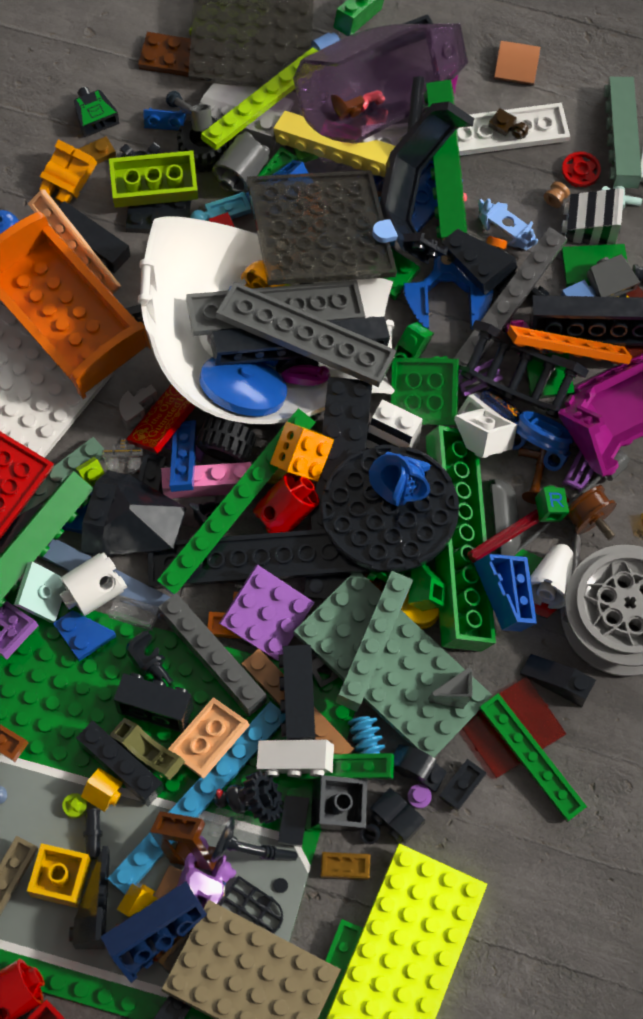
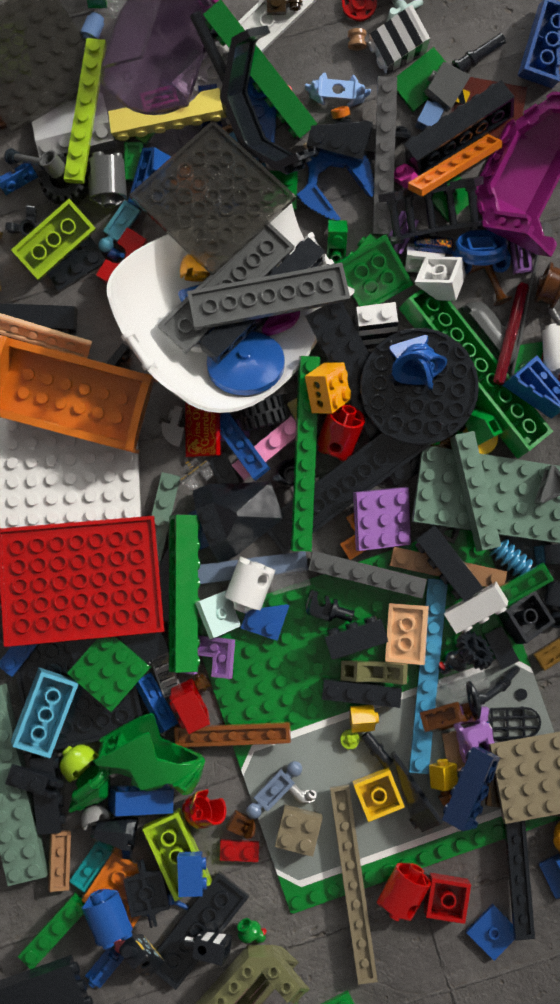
camera: 30 degrees left, 20 degrees up
(90, 471) = (181, 499): lime plate -> none
(347, 109) = (150, 78): reddish brown plate -> none
(375, 96) = (159, 52): coral arm -> none
(384, 231) = (263, 168): light blue tile -> none
(551, 504) = (524, 300): green brick -> none

